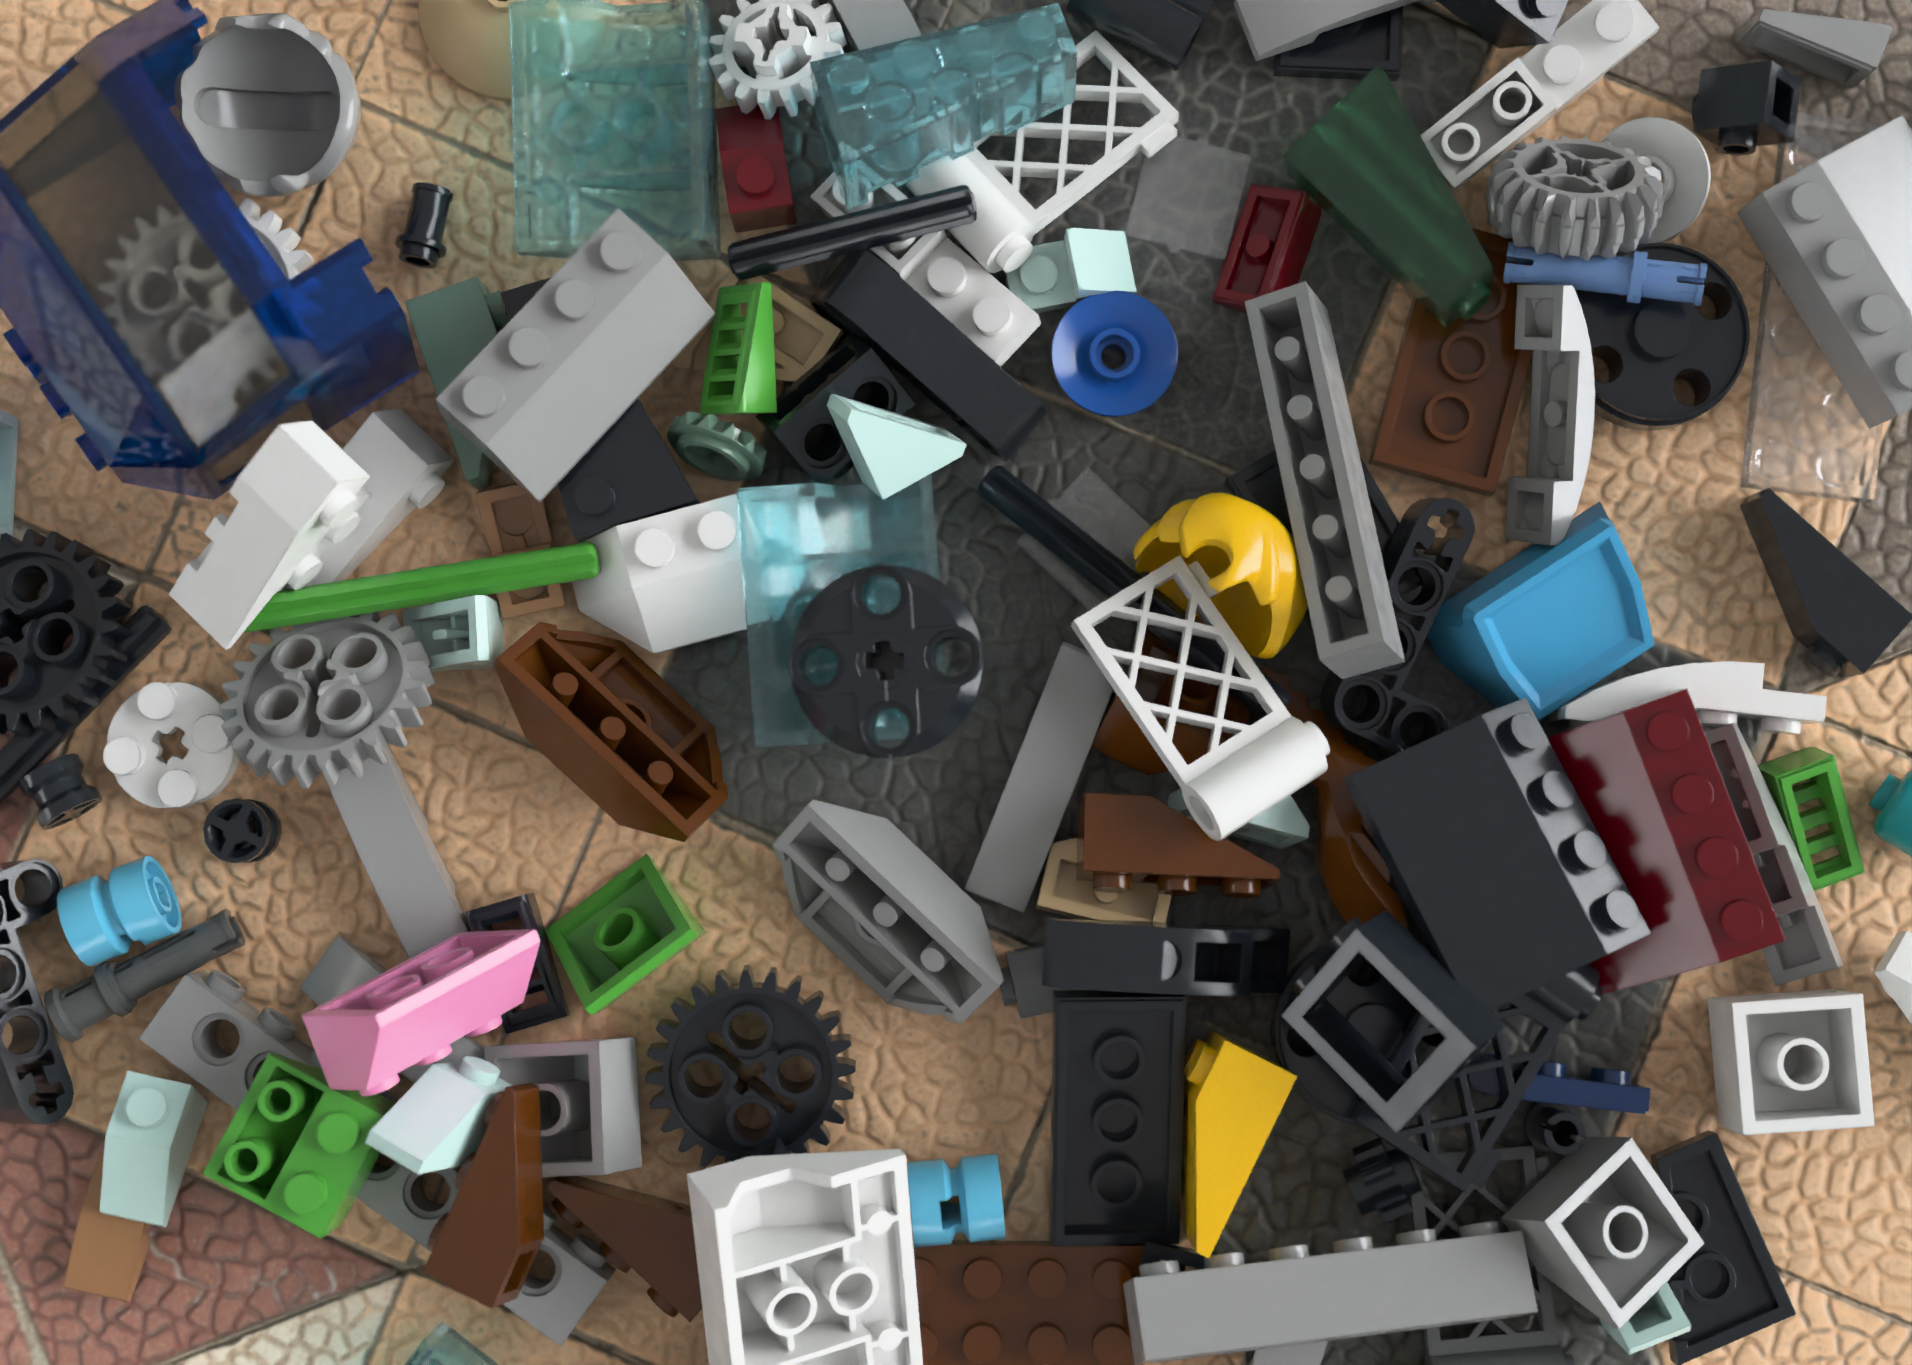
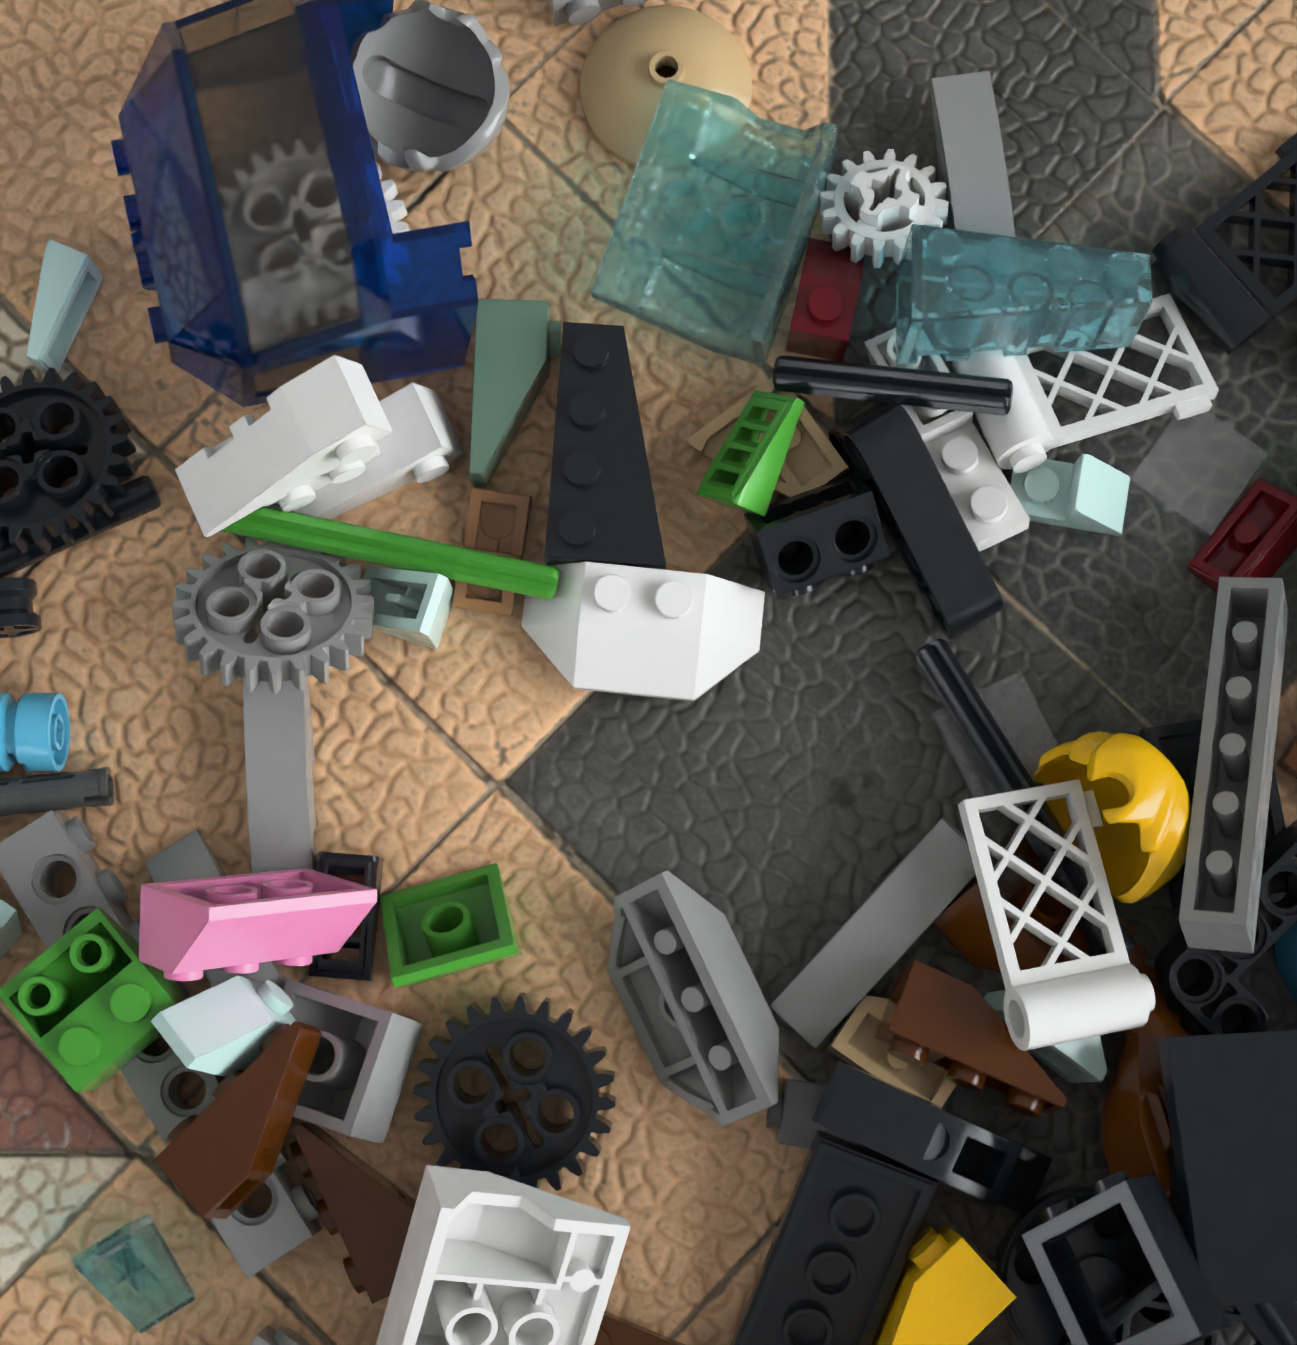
camera: 25 degrees right, 5 degrees down
(135, 749) = (87, 598): white plate -> none
(229, 826) = (141, 695): black wheel -> none
(425, 226) = (512, 252): black pin -> none
(576, 356) = (610, 399): light grey slope -> none
(615, 729) = (513, 741): reddish brown wedge -> none
(716, 447) = (699, 527): sand green gear -> none
(795, 546) = (758, 717): clear light blue piece -> none
(886, 661) = (783, 771): black piece -> none
(890, 447) = (853, 586): light aqua slope -> none
(980, 1197) = (678, 1295): medium azure wheel -> none
(1122, 323) = (1106, 563): blue dish -> none

